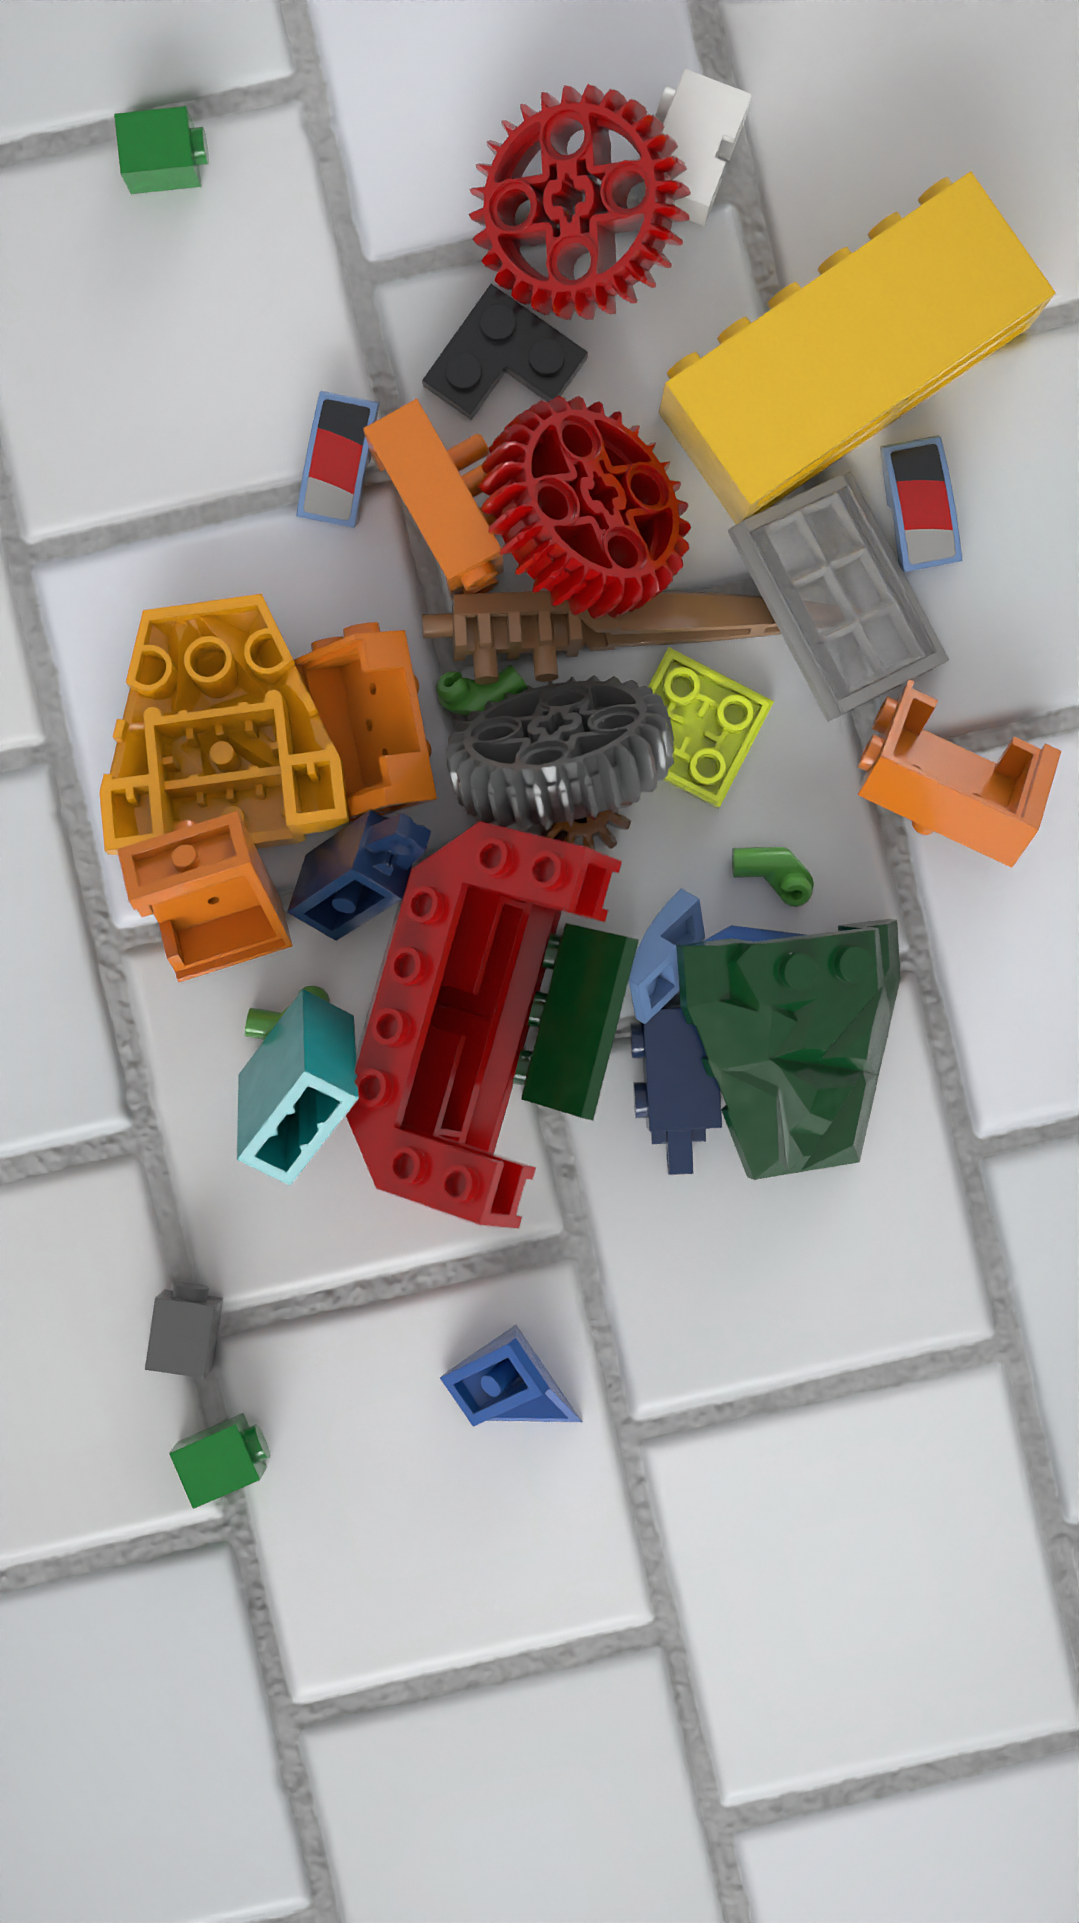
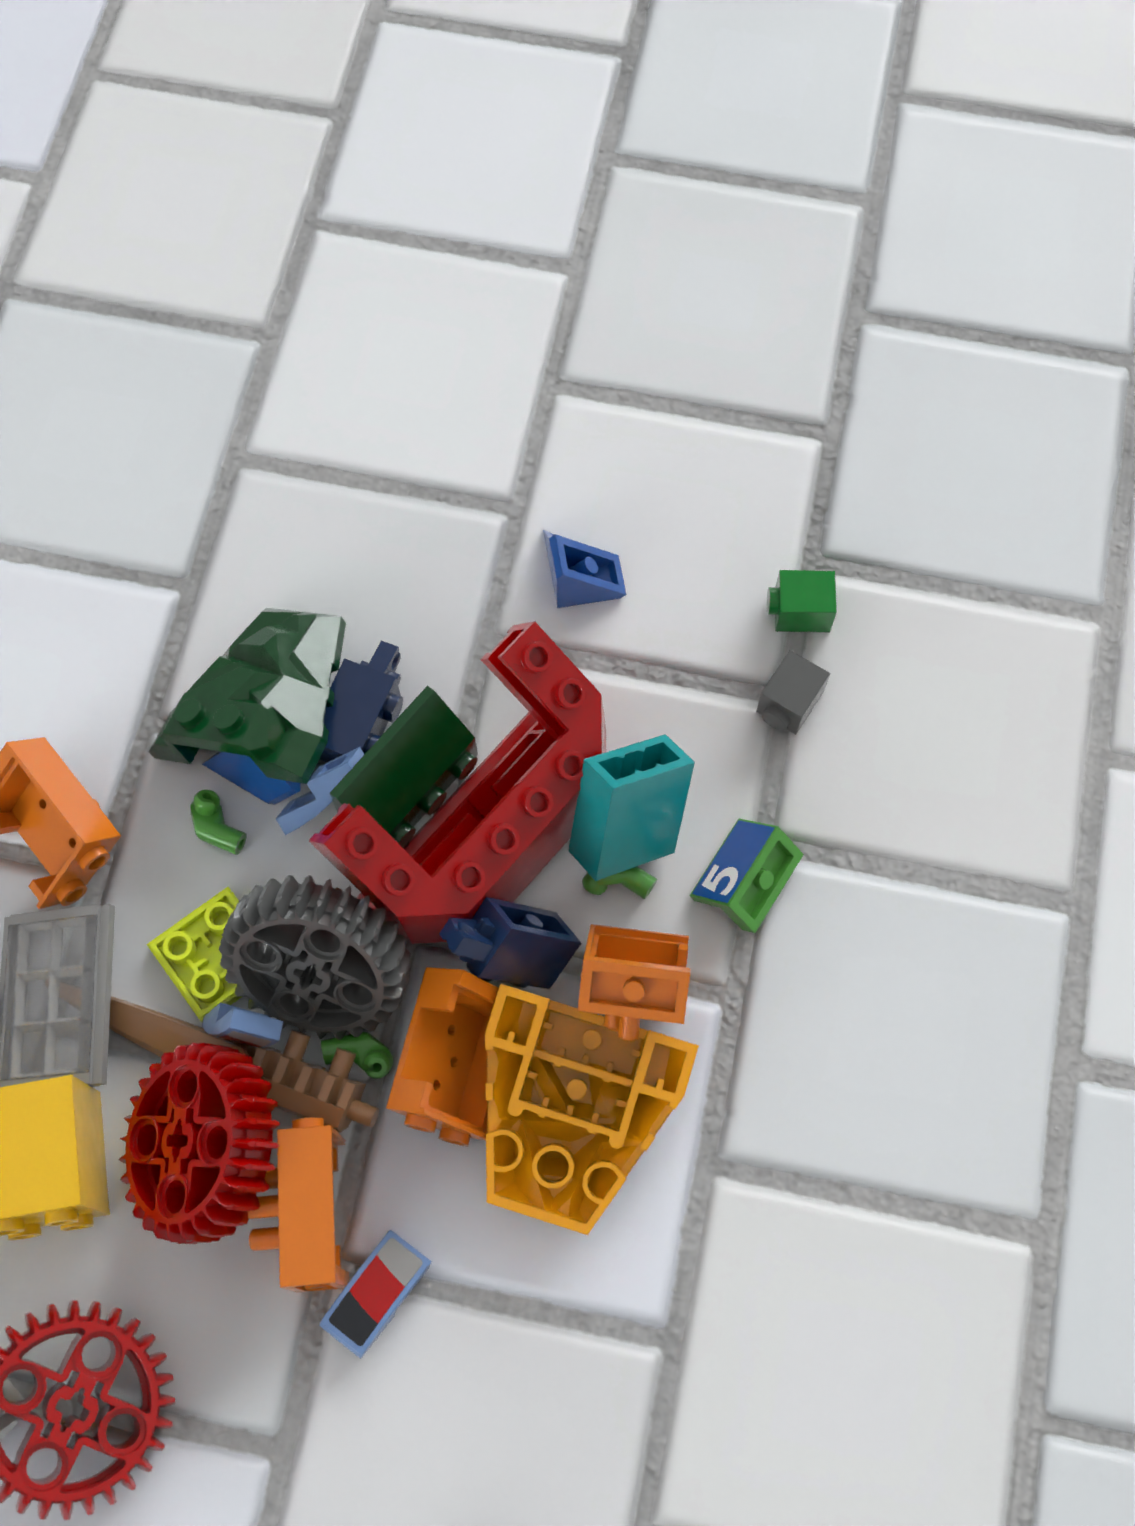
camera: 155 degrees left, 20 degrees down
(147, 1089) = (748, 872): none -> panel
(497, 340) = (198, 1333): black plate -> none
(609, 648) = (242, 1026): none -> medium blue slope

